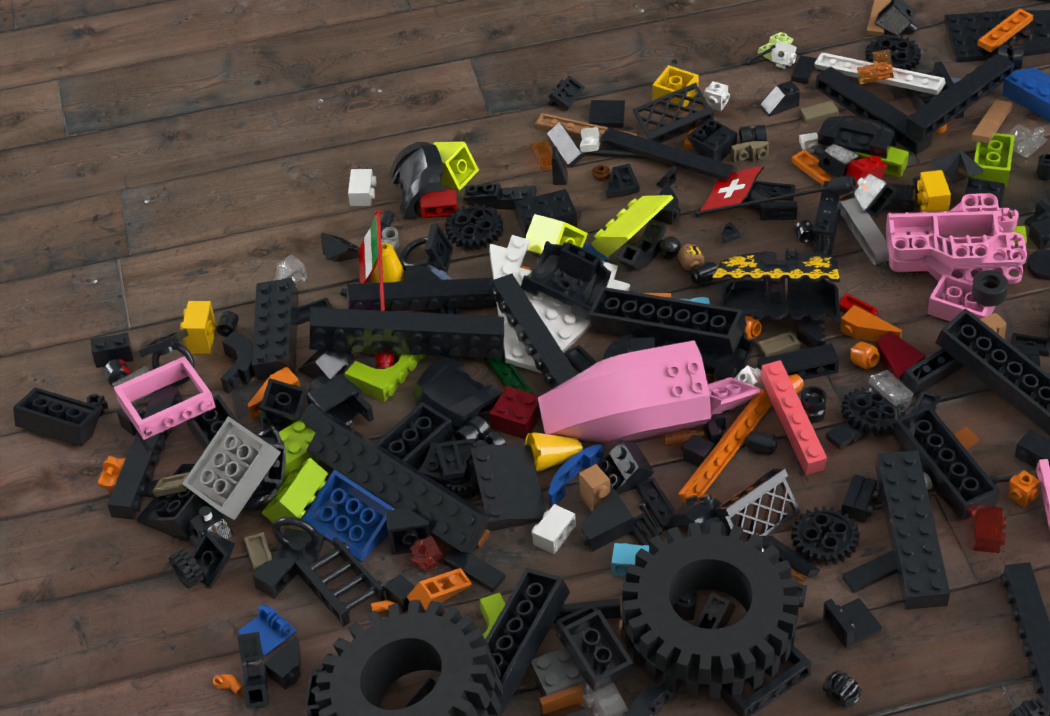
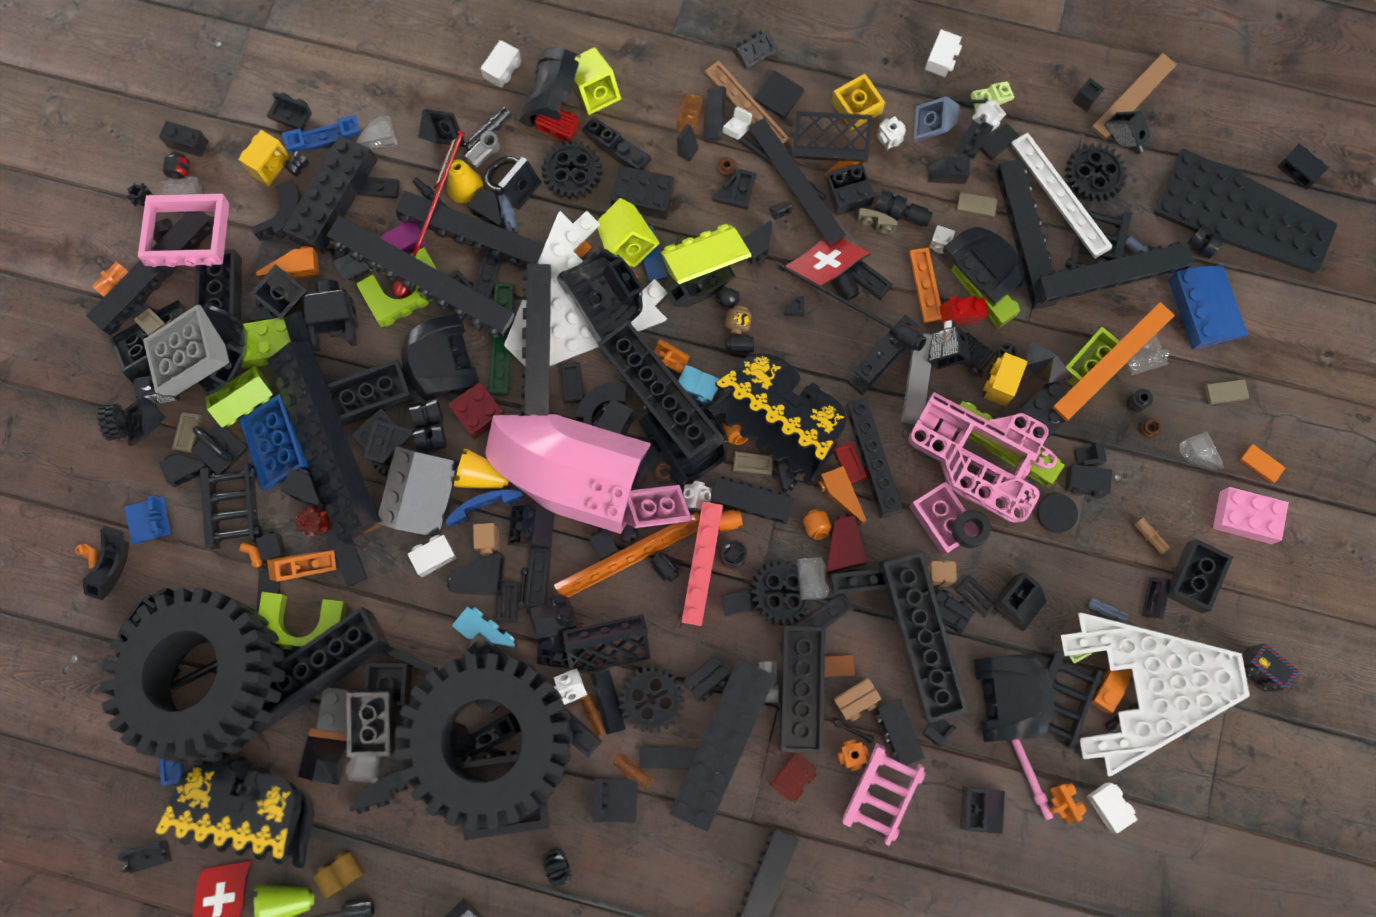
camera: 25 degrees right, 30 degrees up
(57, 416) = (99, 190): black slope -> none
(166, 345) = (217, 168): black tile -> none
(196, 290) = (289, 111): none -> black bracket
(239, 297) = (321, 137): none -> blue slope
(286, 664) = (141, 566): black slope -> none
(717, 36) = (943, 53): none -> white brick
(742, 73) = (935, 118): none -> sand blue slope
(774, 210) = (852, 311): black tile -> none
(779, 135) = (917, 214): none -> black brick
(784, 67) = (974, 138): none -> black bracket
(804, 231) = (862, 347): black wheel -> none
(835, 159) = (945, 281): black torso -> none
(847, 13) = (1088, 94): none -> black panel
(851, 591) = (633, 771): none -> clear orange pin
(876, 293) = (873, 458): none -> black brick
(880, 70) = (1063, 194): clear orange plate -> none
(991, 121) = (1123, 320): medium nougat tile -> none
(995, 451) = (856, 700): none -> medium nougat brick
(1005, 30) = (1224, 207): orange plate -> none
(1005, 146) = (1113, 361): none -> orange tile

